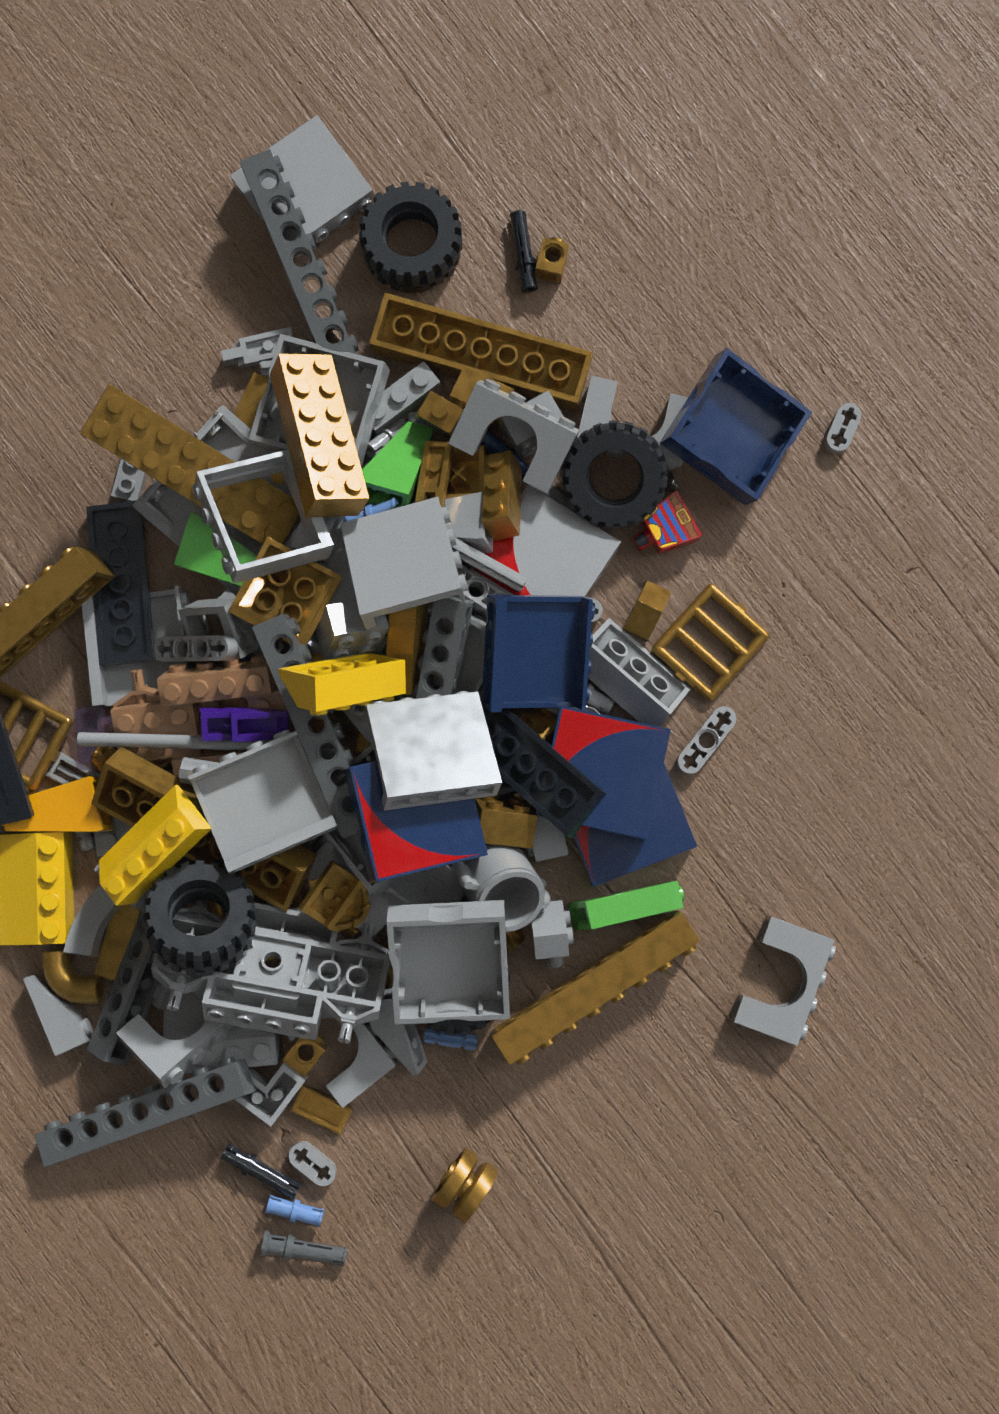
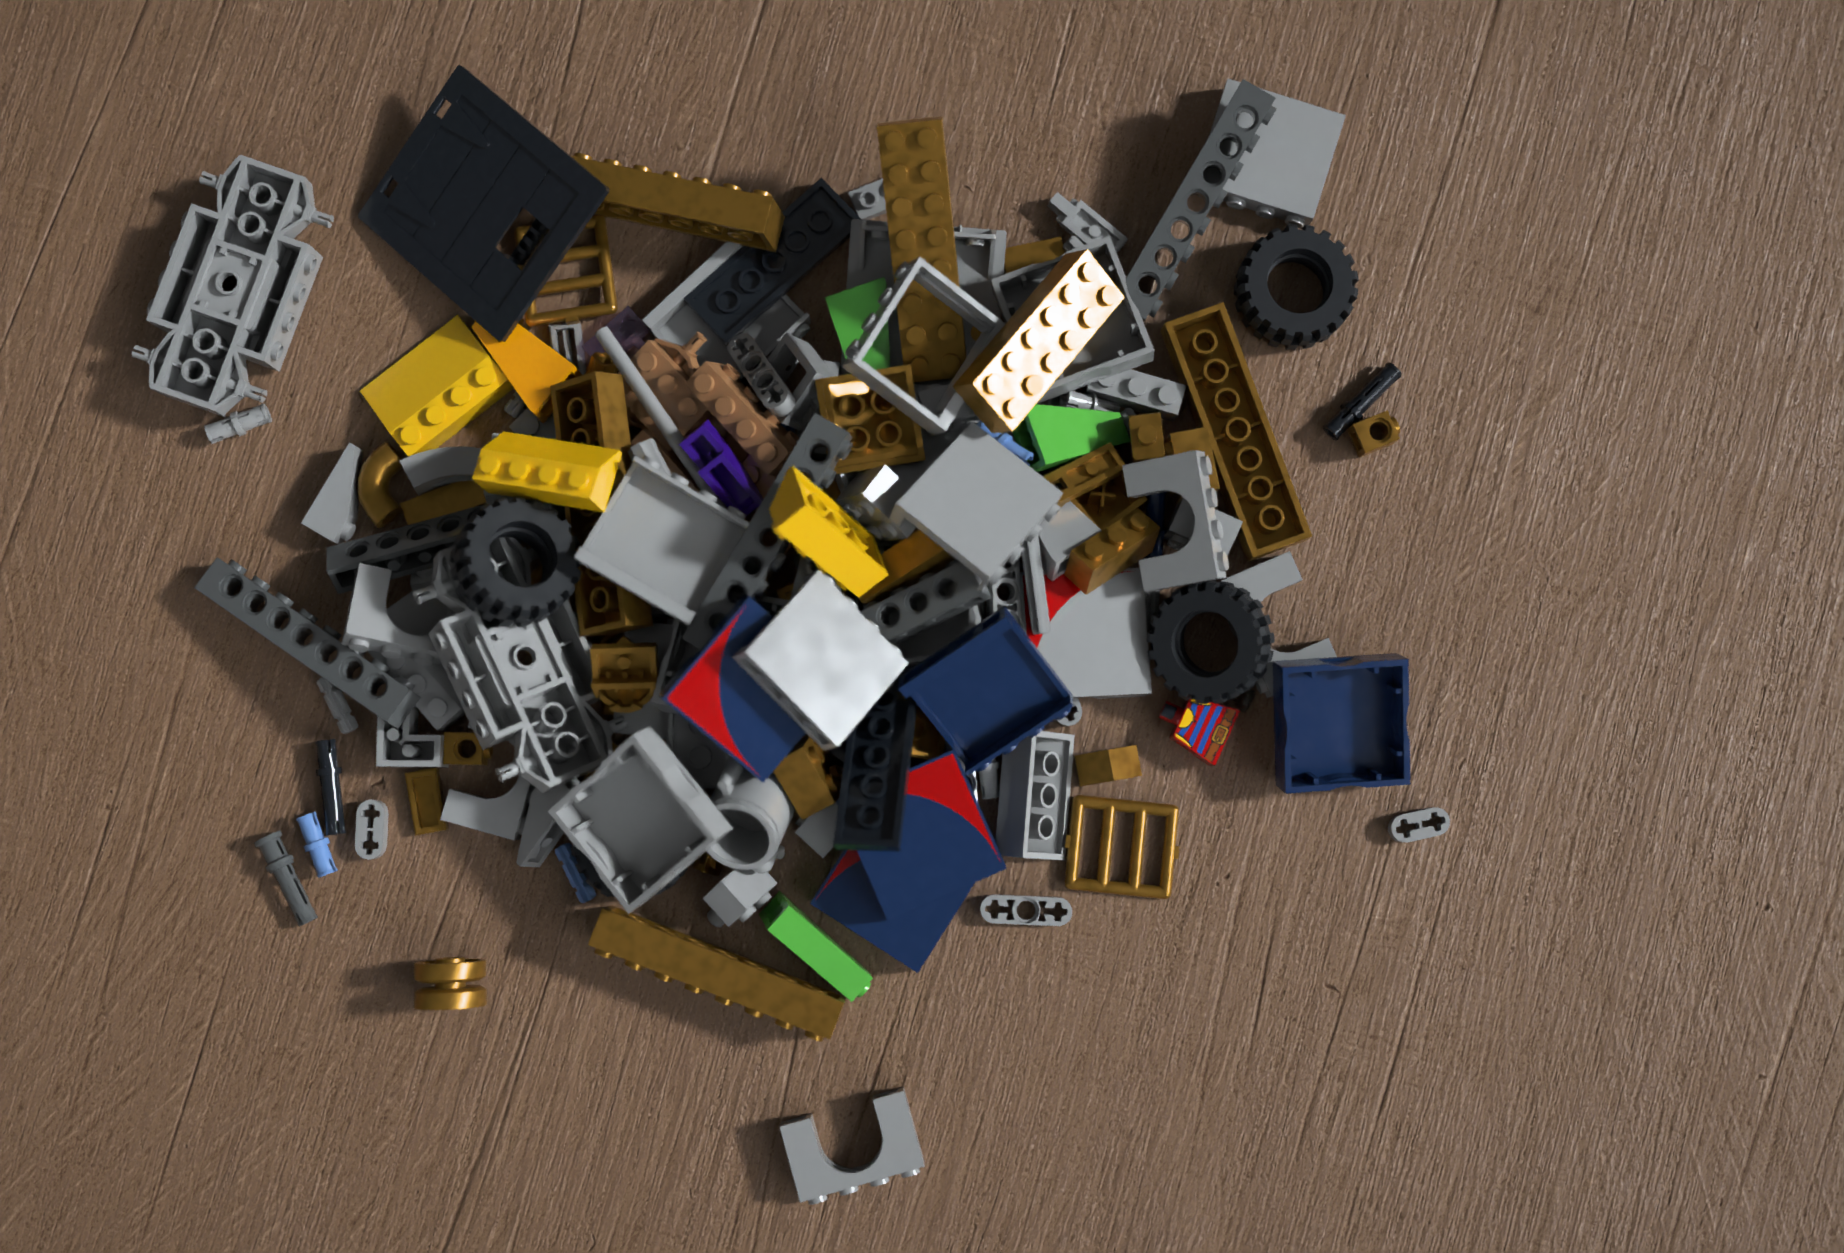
camera: 50 degrees right, 0 degrees up
(206, 1124) = (338, 706): none -> light grey axle

